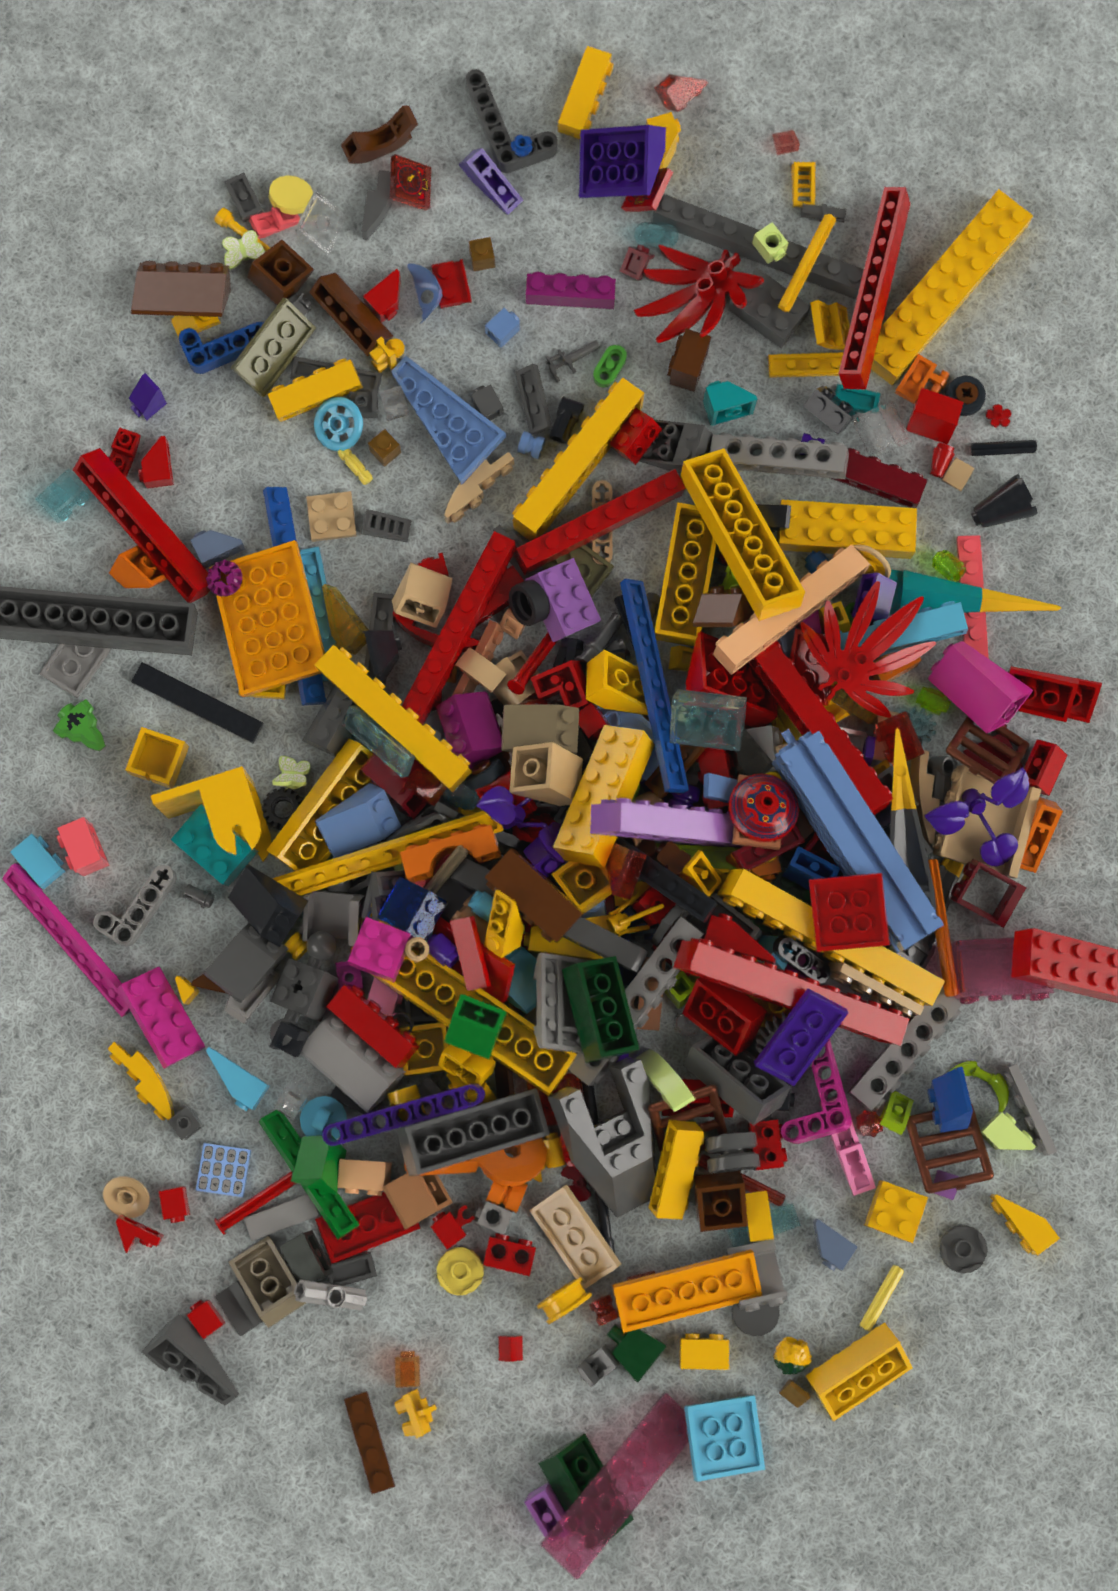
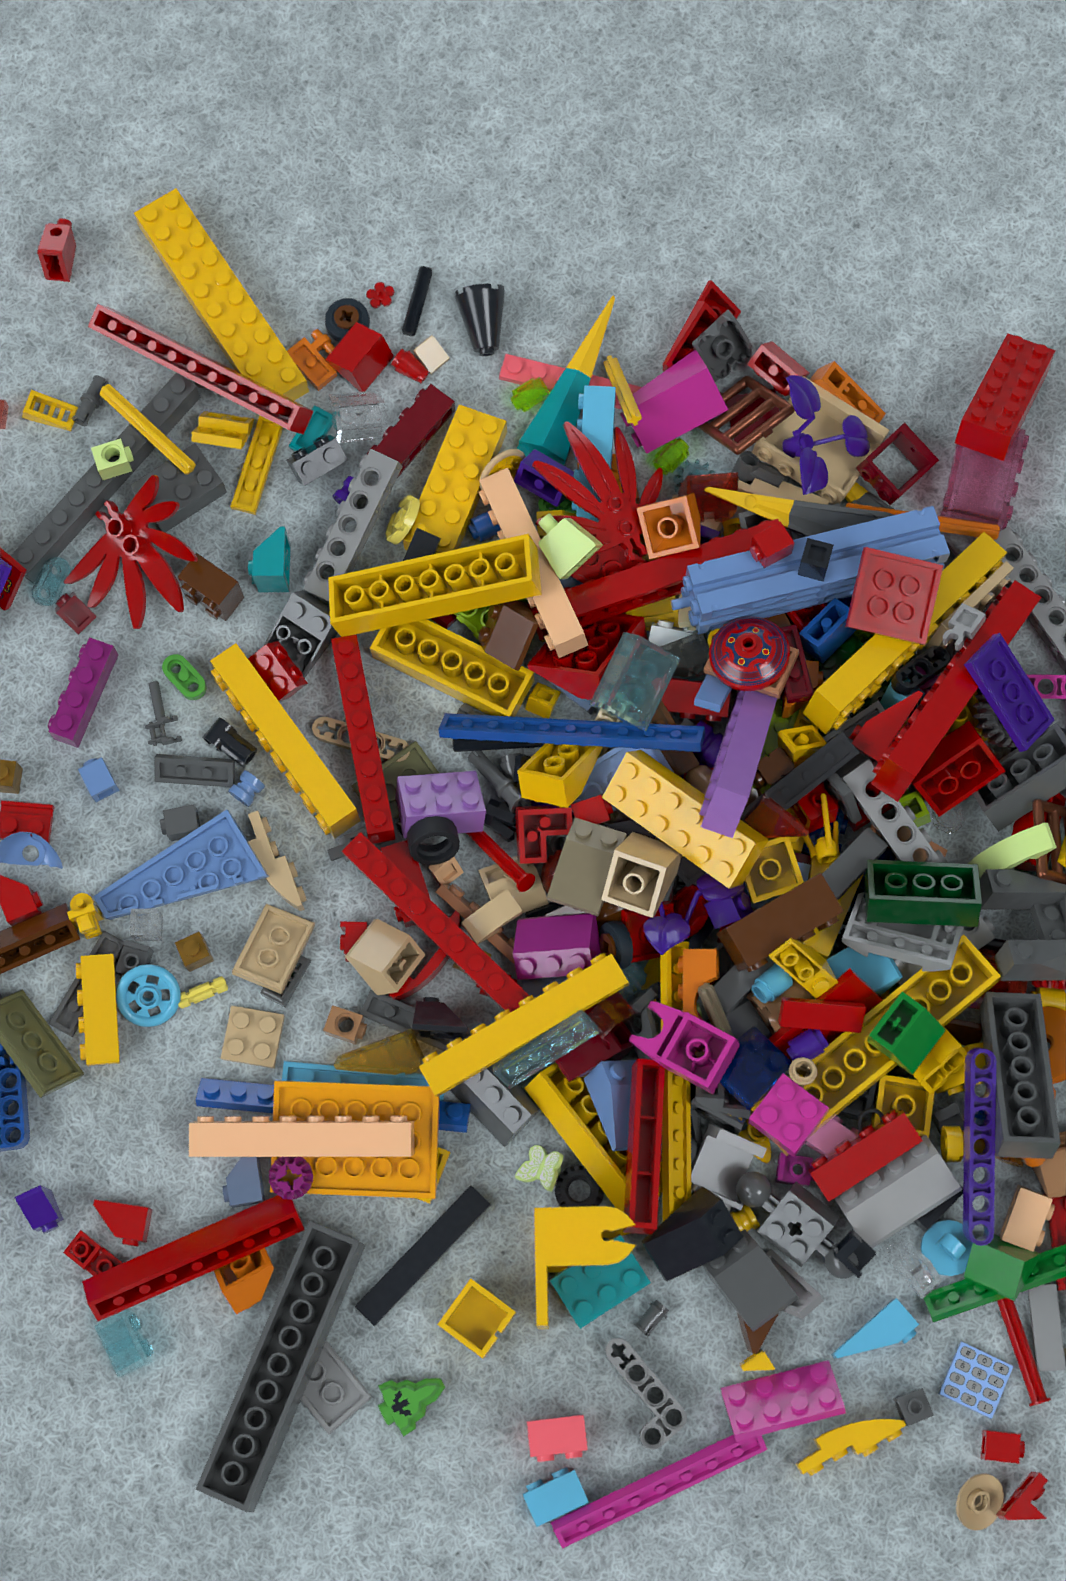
camera: 65 degrees left, 5 degrees down
(254, 575) = (301, 1138): none -> light nougat brick
(323, 842) = (644, 1146): none -> red brick
(361, 574) = (336, 1017): none -> medium nougat brick
(406, 508) = (273, 948): none -> tan tile
(409, 842) = (680, 1039): none -> dark pink brick
(799, 494) = (402, 521): none -> light yellow tile
(811, 629) = (566, 545): none -> yellowish green torso
(849, 981) = (963, 623): none -> light grey plate
(857, 834) = (815, 559): none -> black panel
(858, 711) = (670, 525): none -> orange slope
(858, 794) = (771, 545): none -> red brick
(945, 140) = (60, 242): none -> red torso
(972, 638) = (623, 391): none -> yellow axle
(1046, 714) = (723, 346): none -> dark grey slope

